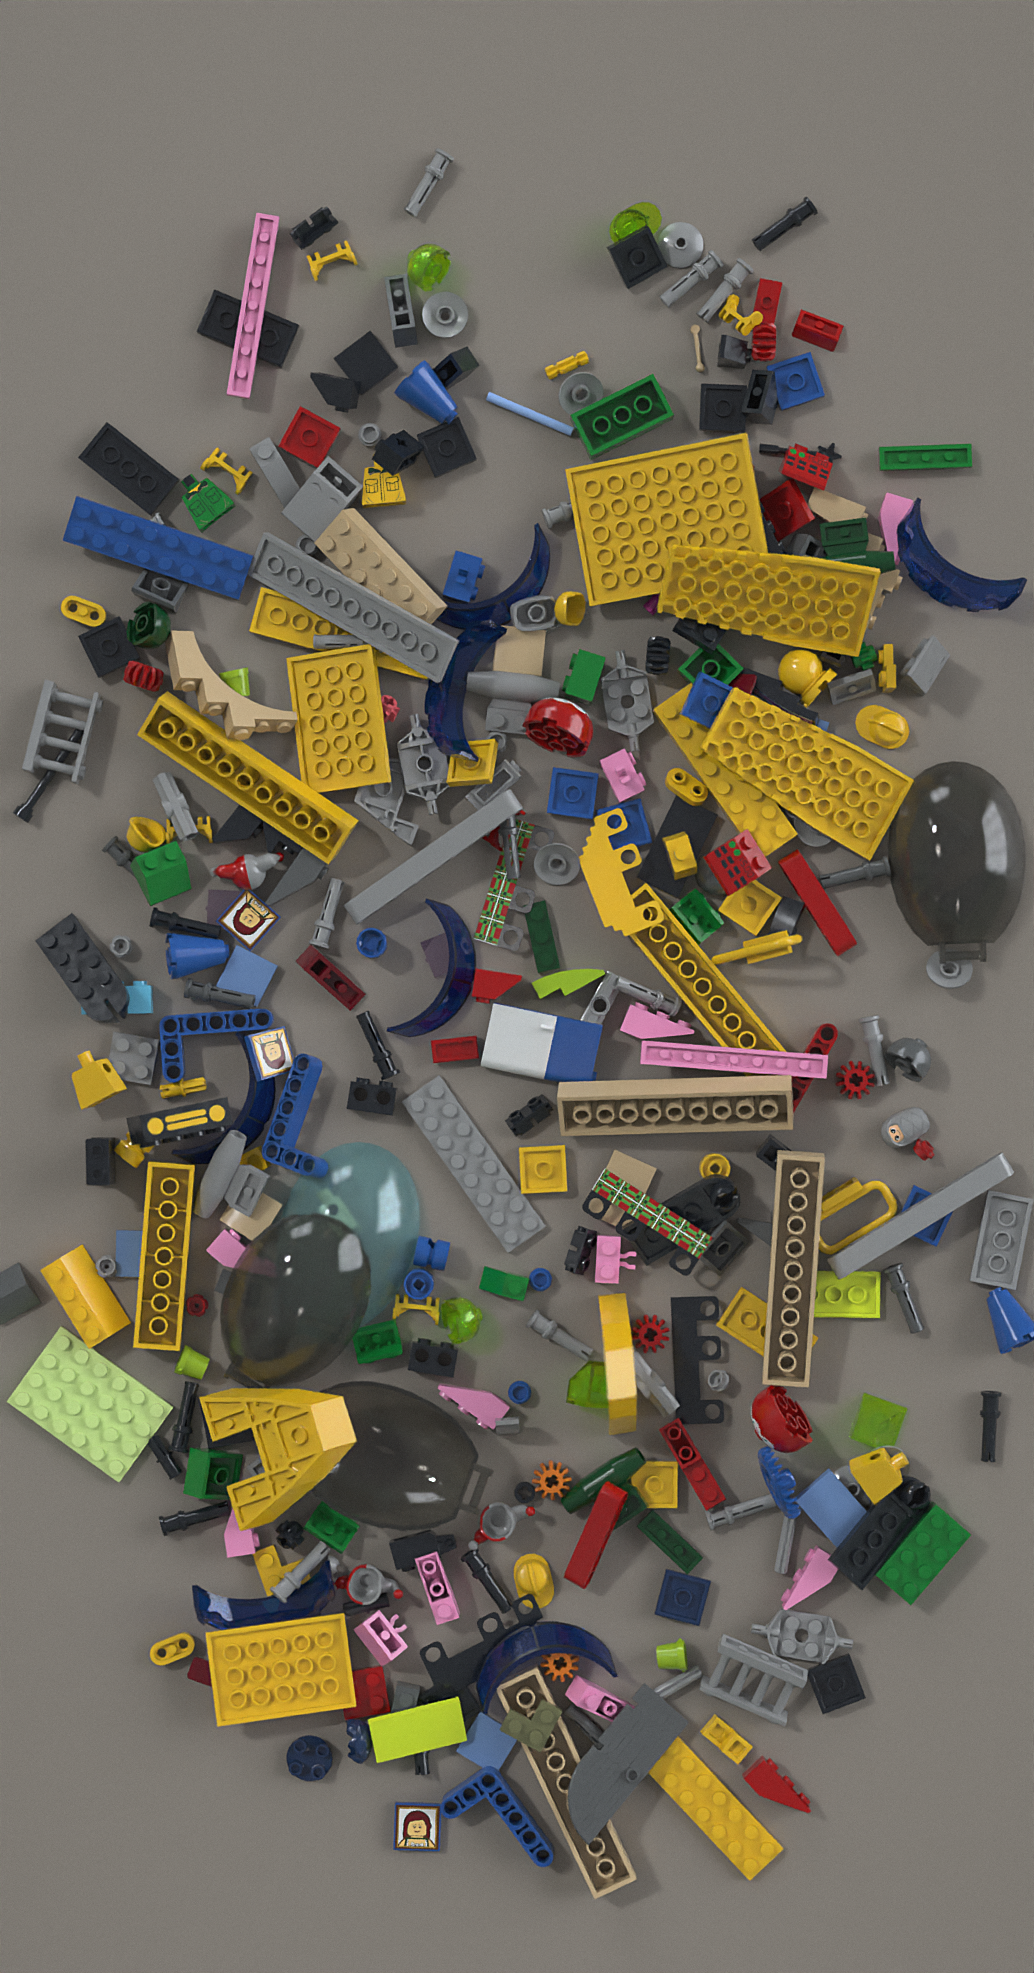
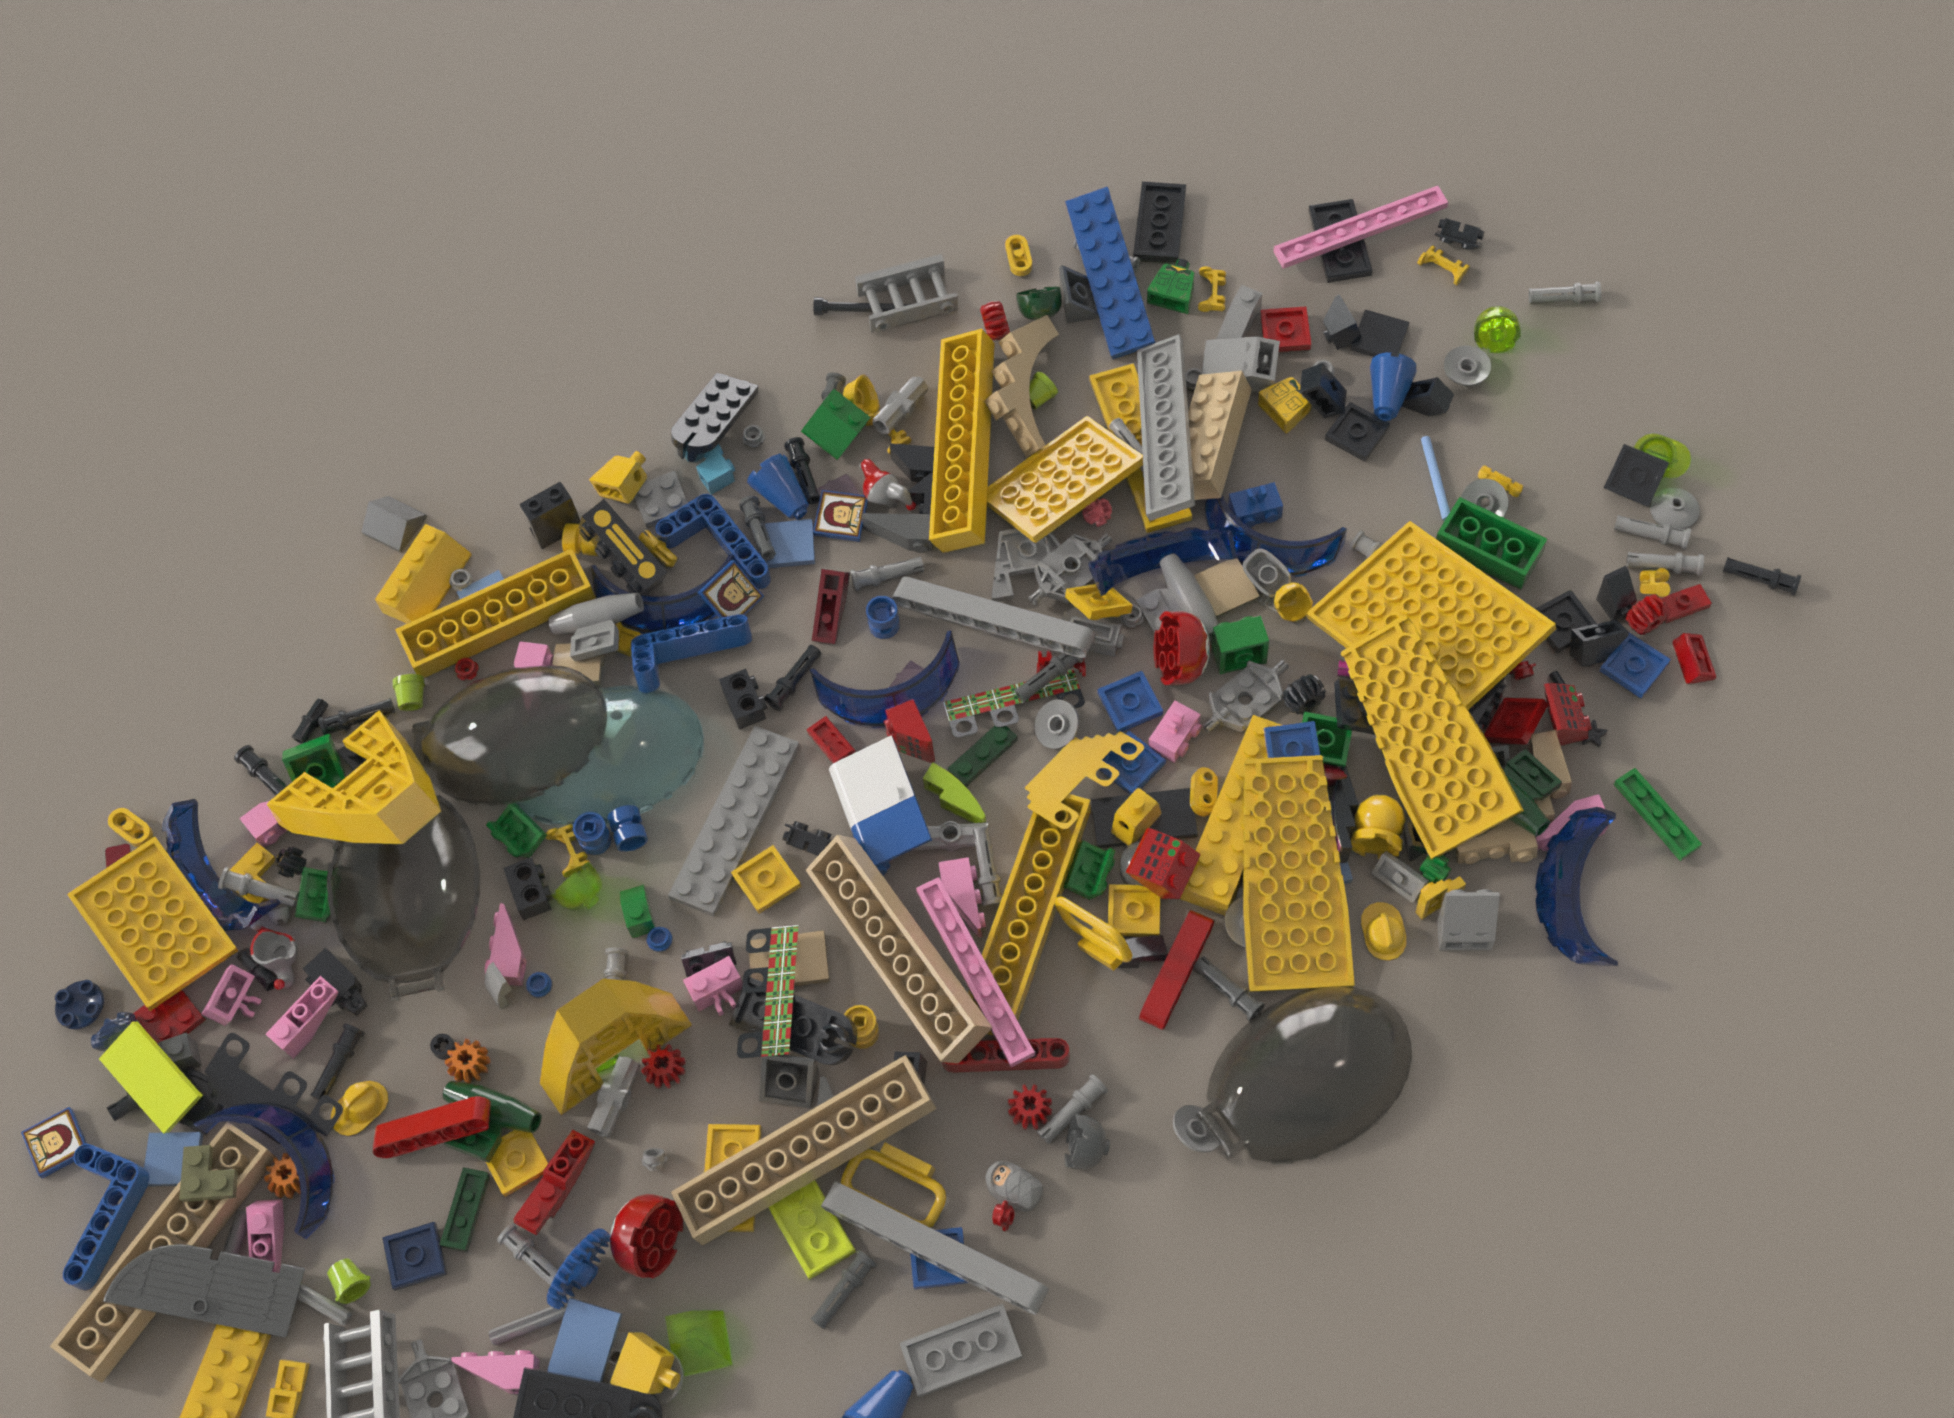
camera: 65 degrees right, 25 degrees down
(90, 1404) = (327, 639): yellowish green plate -> none
(108, 647) = (1001, 285): black plate -> none
(401, 310) = (1441, 334): dark grey slope -> none
(498, 1522) = (398, 1036): light grey piece -> none
(686, 1357) = (661, 1117): black piece -> none
(695, 330) = (1613, 562): tan hinge -> none

